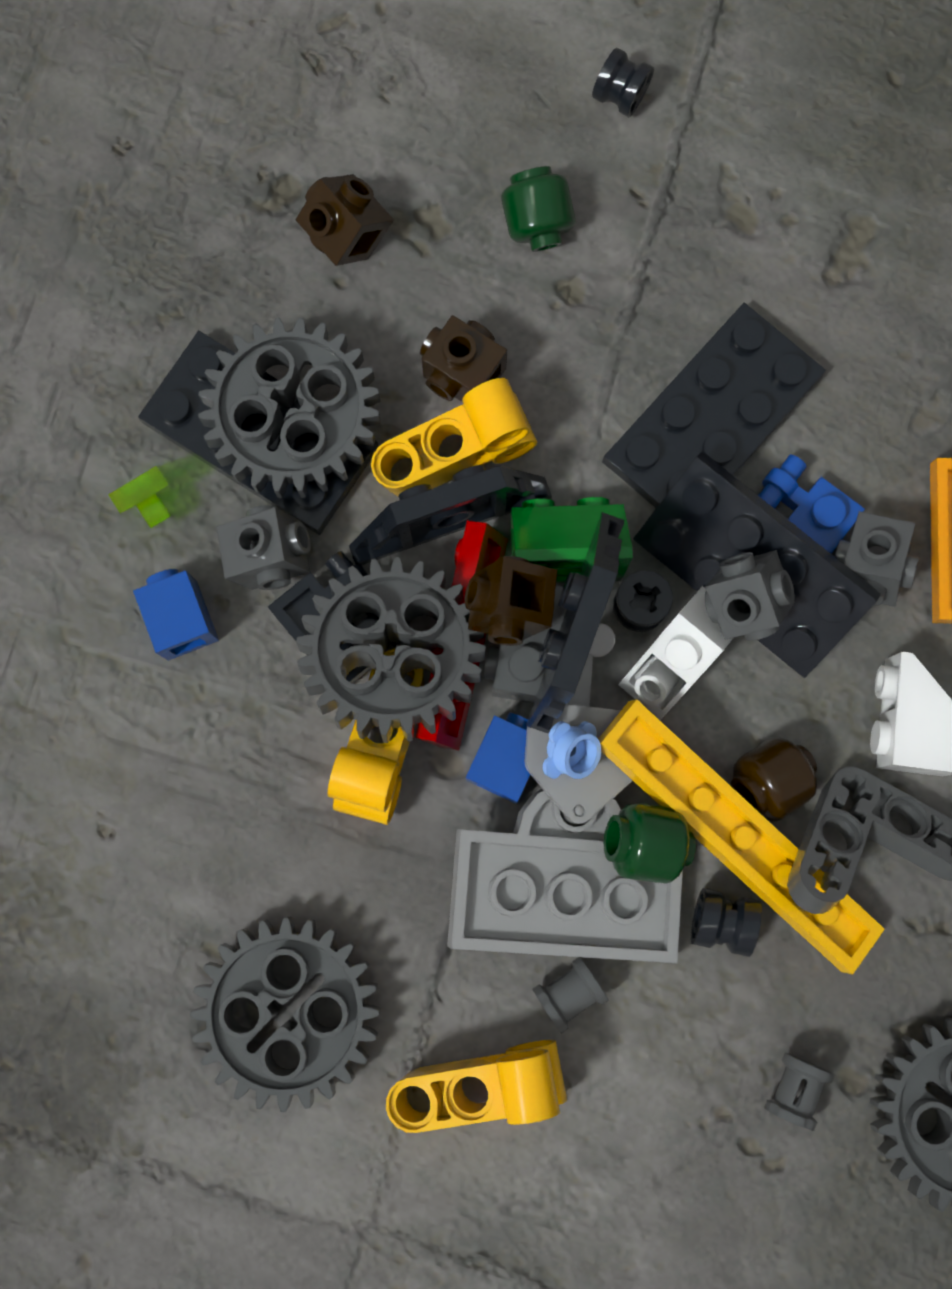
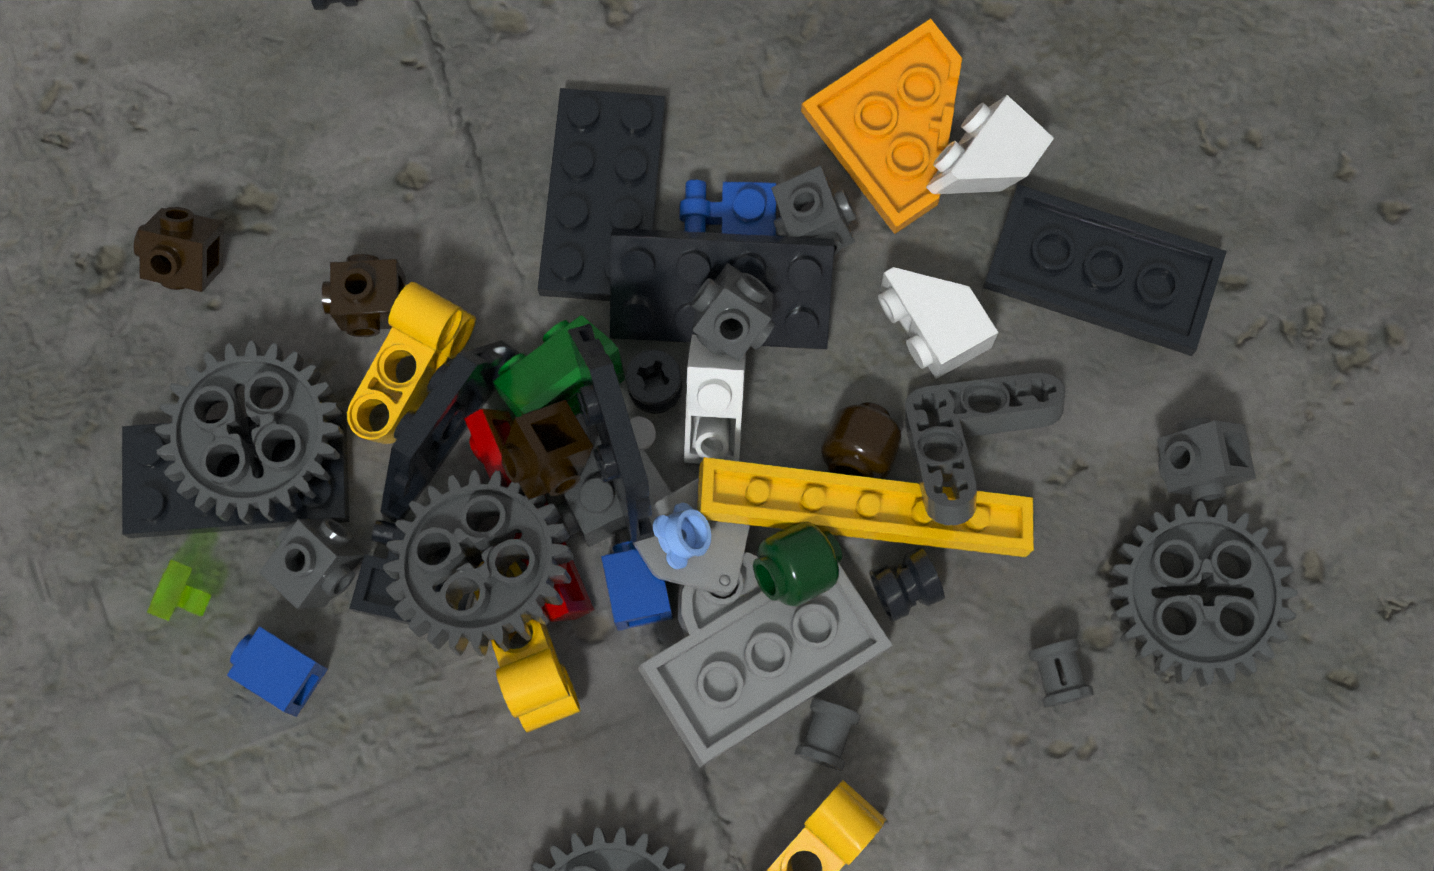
camera: 35 degrees left, 5 degrees down
(538, 208) = (337, 129): dark green head -> none

